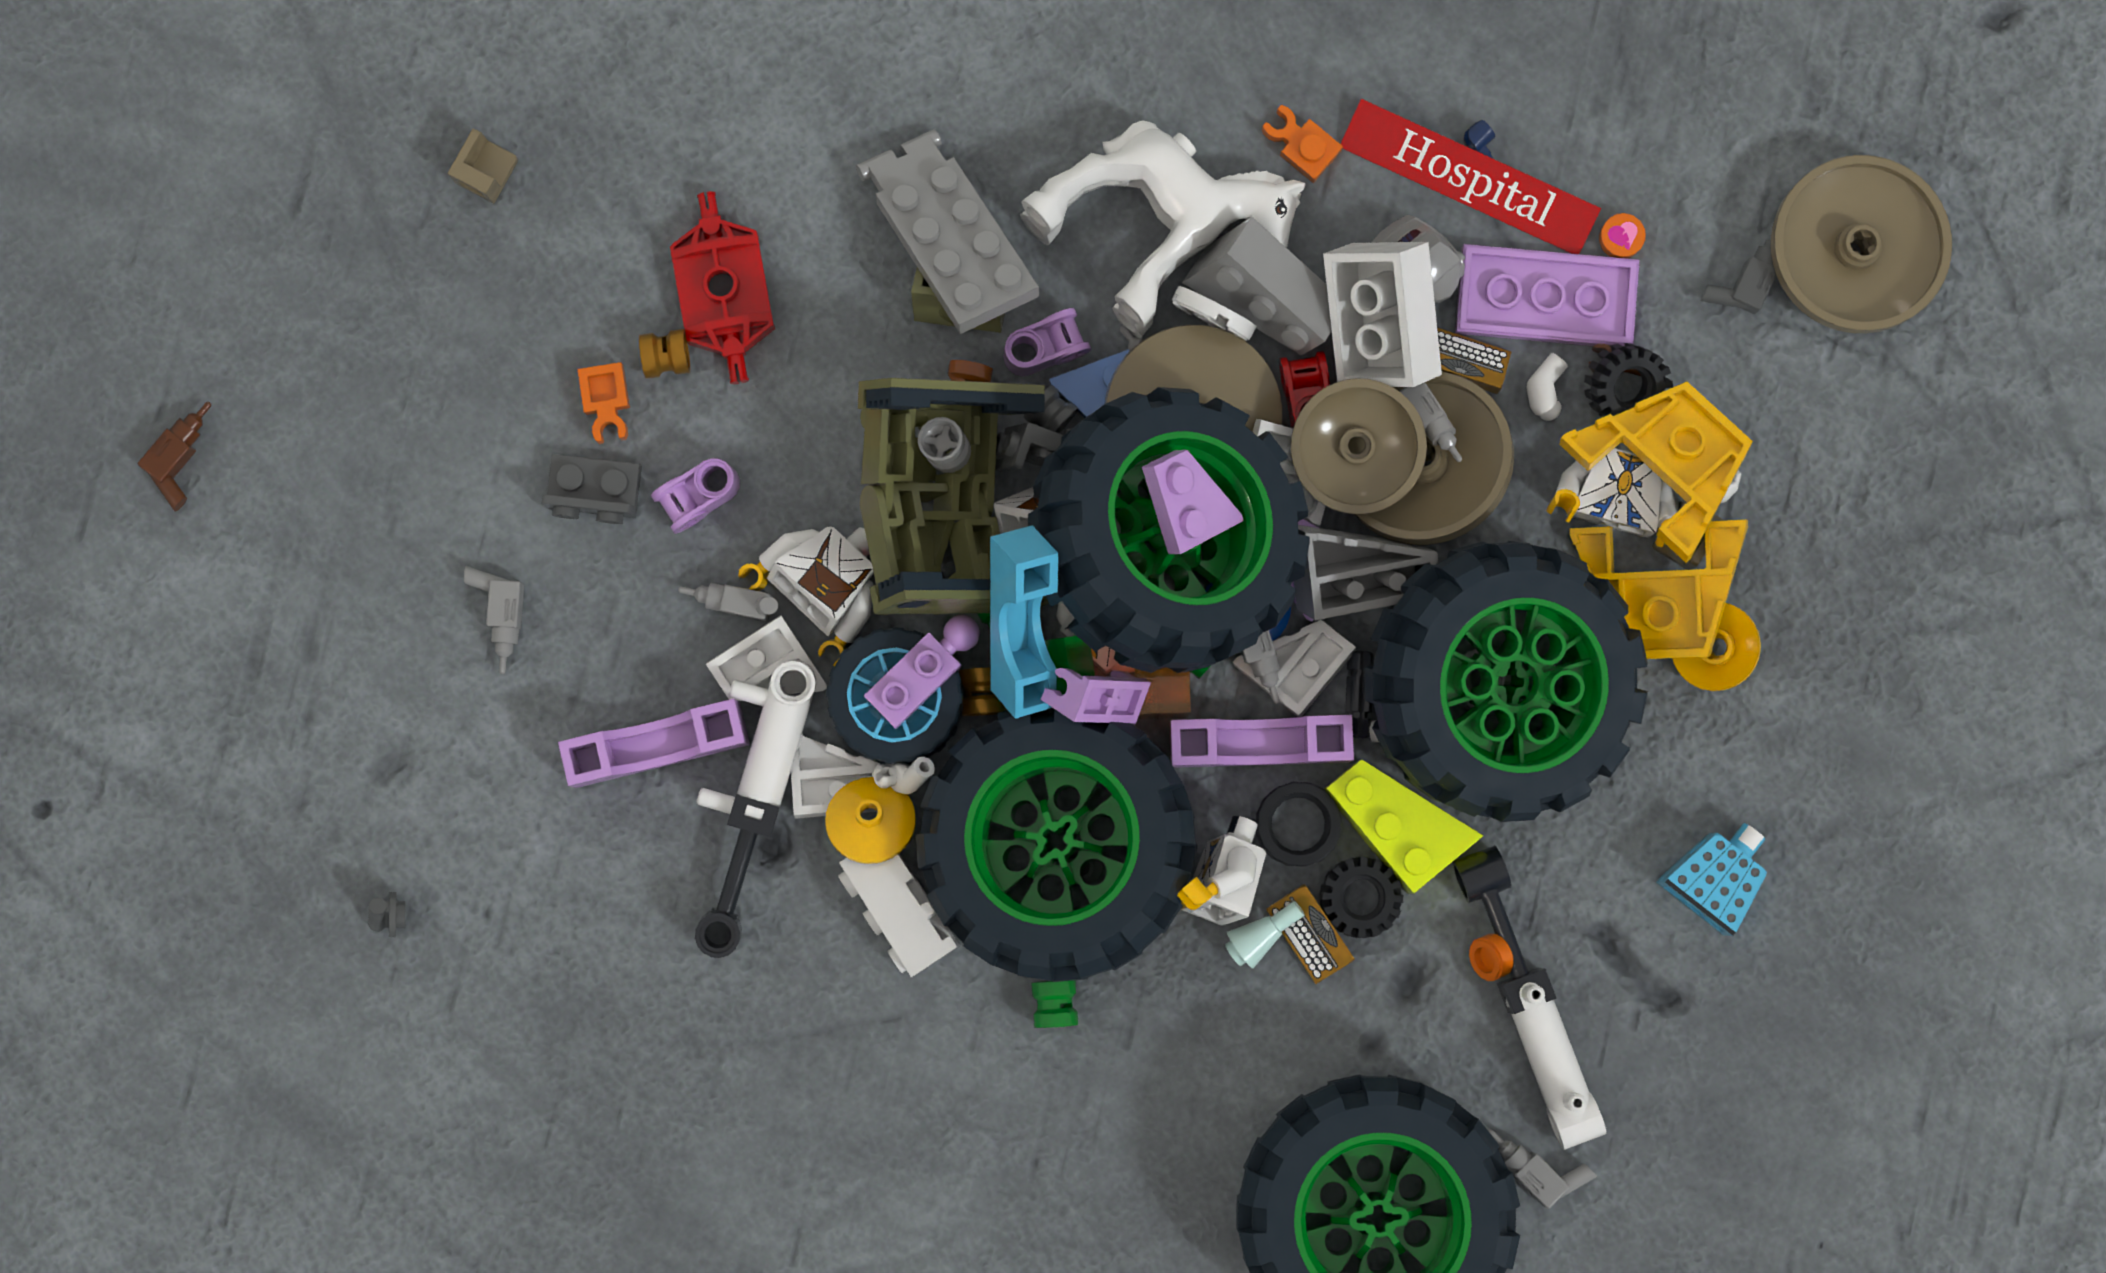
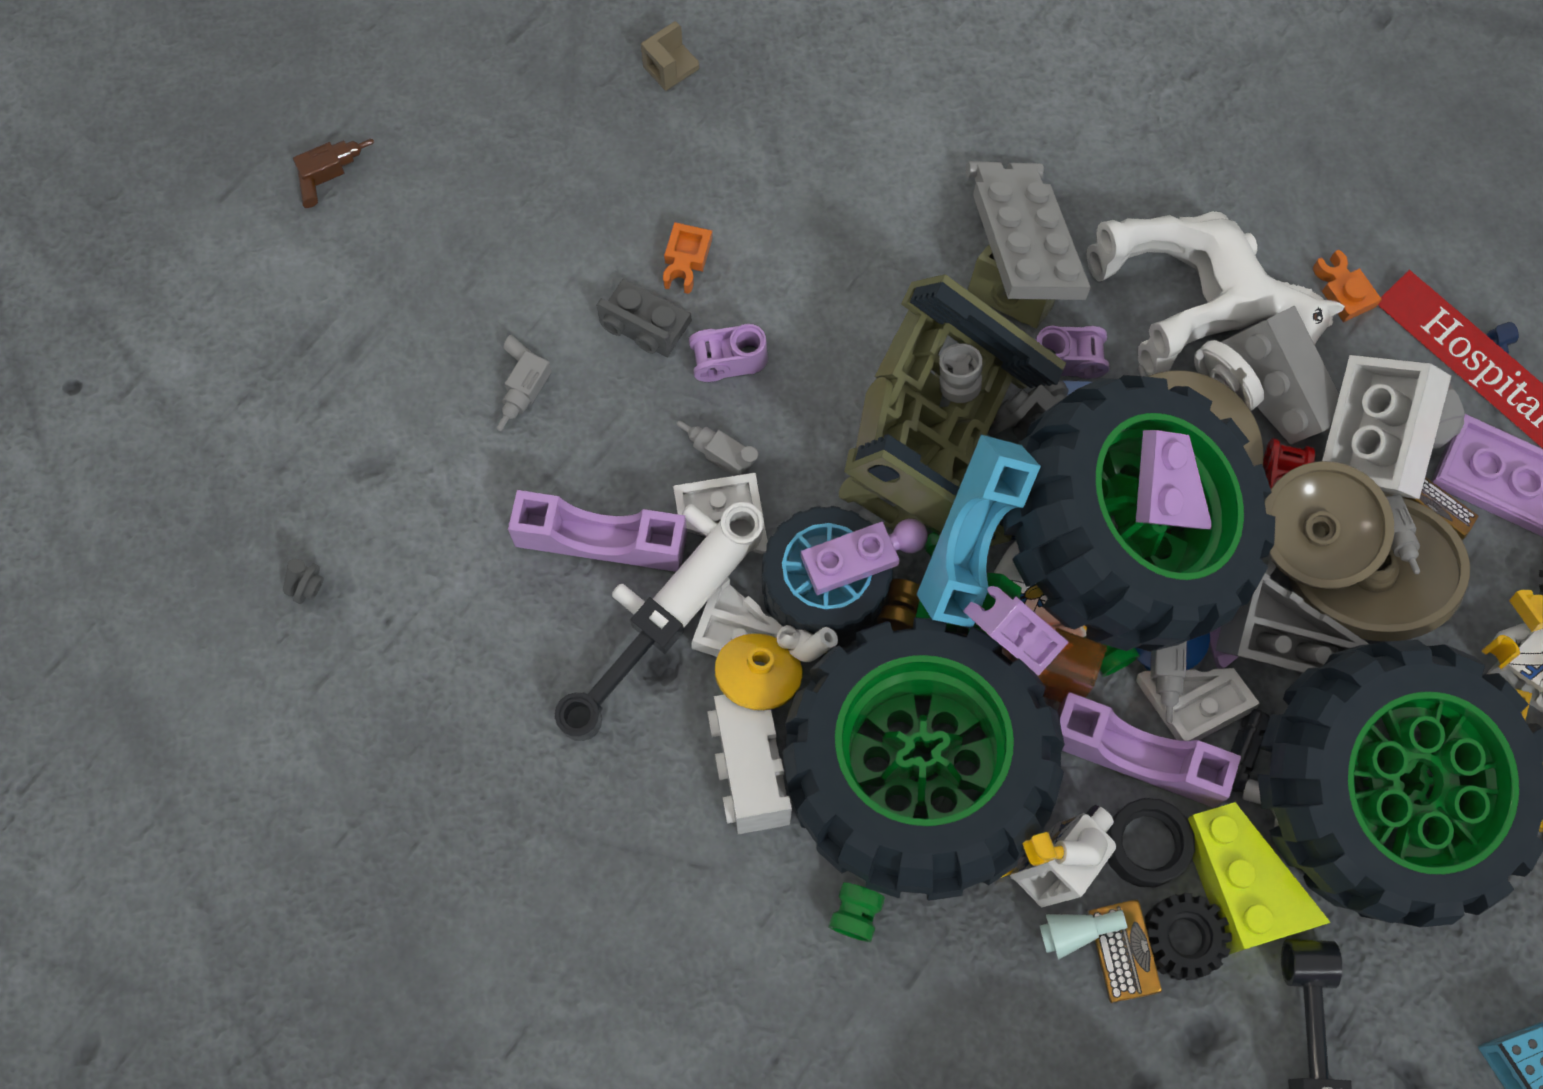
camera: 20 degrees right, 15 degrees down
(664, 353) = (750, 239): pearl gold wheel -> none
(731, 321) = (818, 237): red plate -> none
(822, 578) = (803, 455): white torso -> none
(1491, 957) = (1295, 1048): orange tile -> none
(1541, 388) = (1498, 557): white arm -> none

